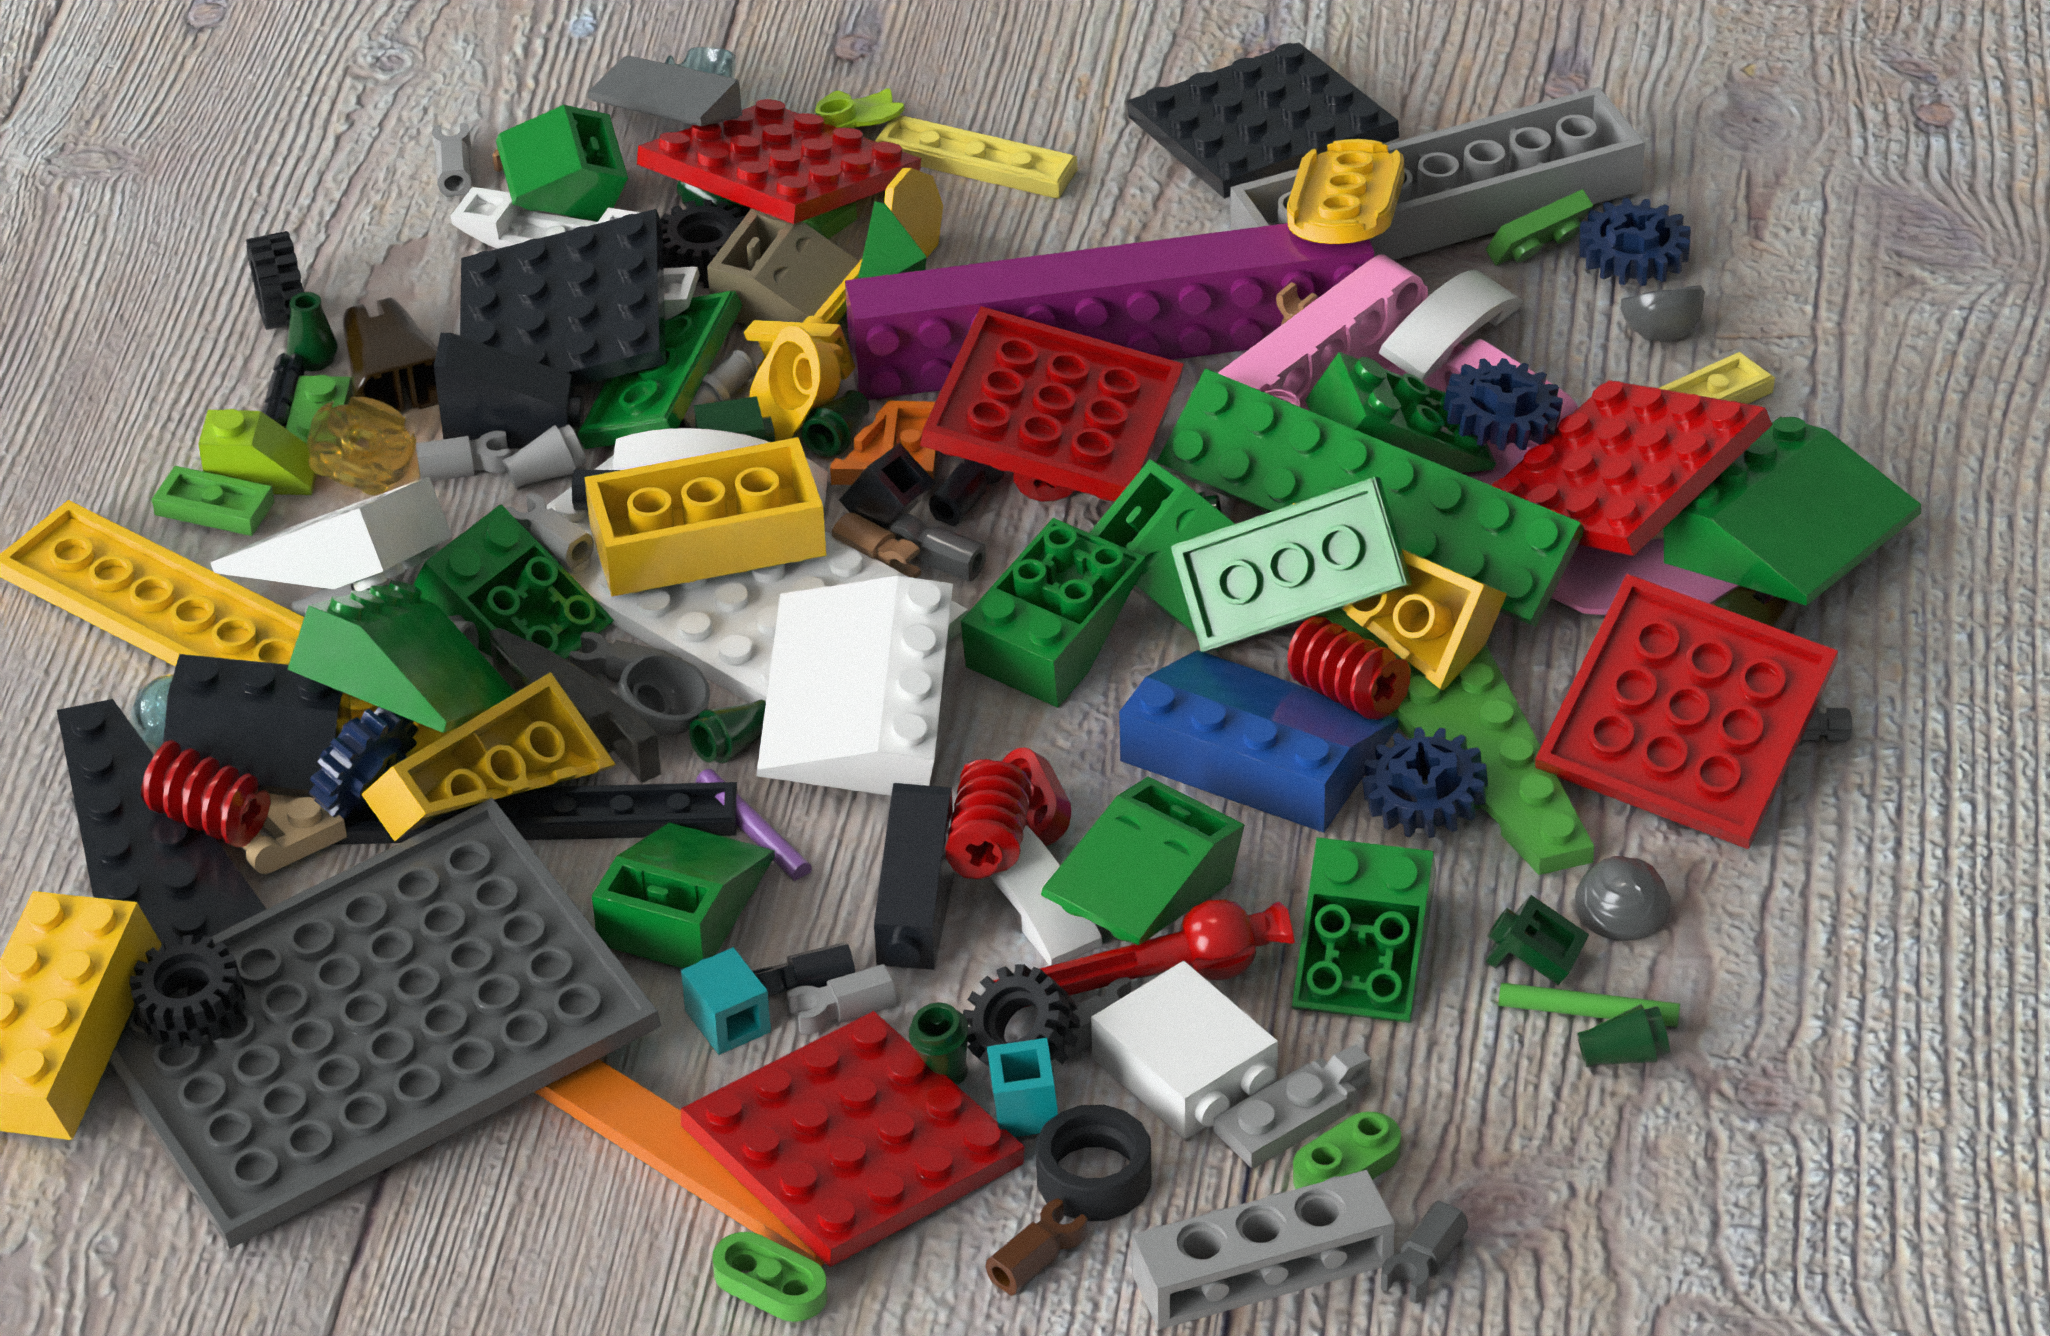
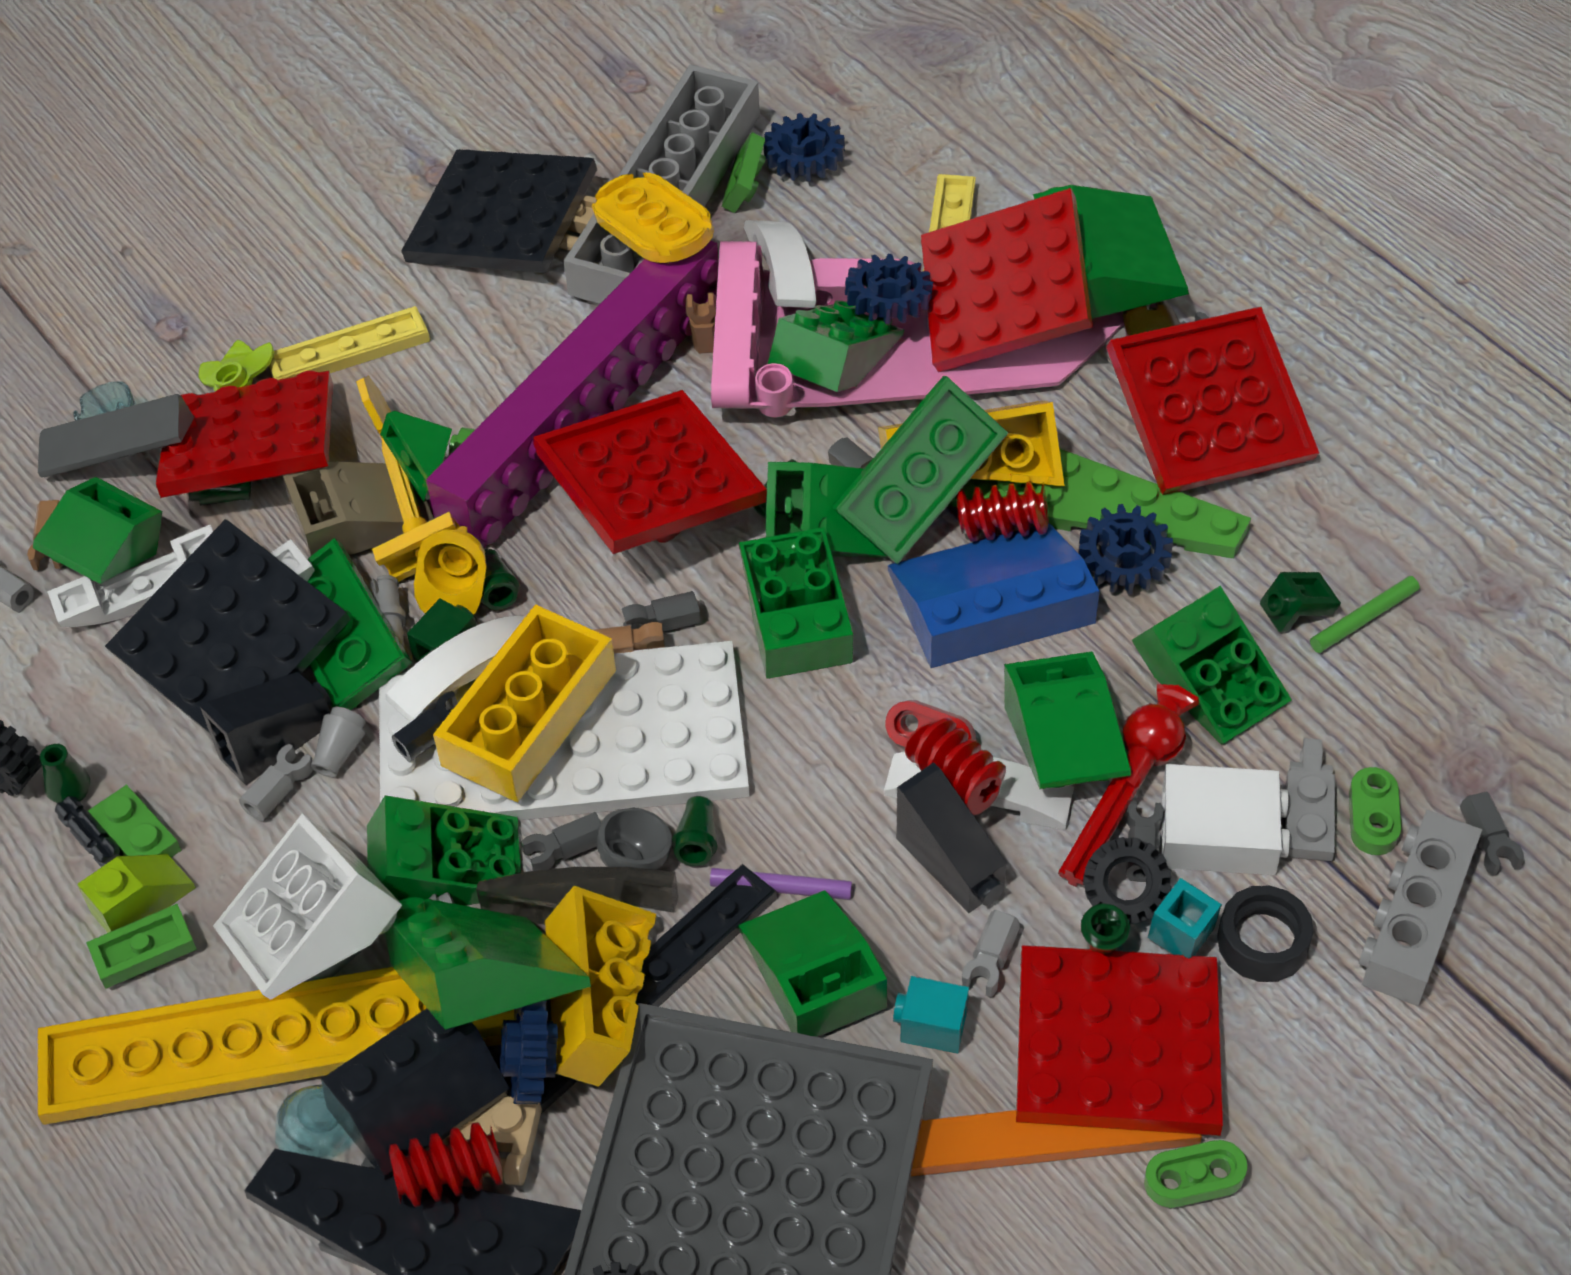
camera: 45 degrees left, 10 degrees up
(364, 468) = (197, 847): clear yellow plate -> none
(388, 353) = (141, 749): dark brown piece -> none
(555, 532) = (424, 786): light grey bar -> none
(697, 234) = (257, 503): black tyre -> none
(808, 969) = (951, 949): black bar -> none
(856, 684) = (754, 740): white slope -> none
(888, 488) = (598, 597): black brick -> none
(893, 424) = (553, 566): orange wing -> none
(962, 491) = (625, 571): black bar -> none
(1035, 1248) = (1303, 1018): reddish brown bar -> none
(1283, 454) = (849, 399): green plate -> none
(1623, 899) = (1301, 538): dark grey piece -> none
(1626, 1038) = (1417, 617): dark green cone -> none
(1664, 313) = (874, 175): dark grey piece -> none

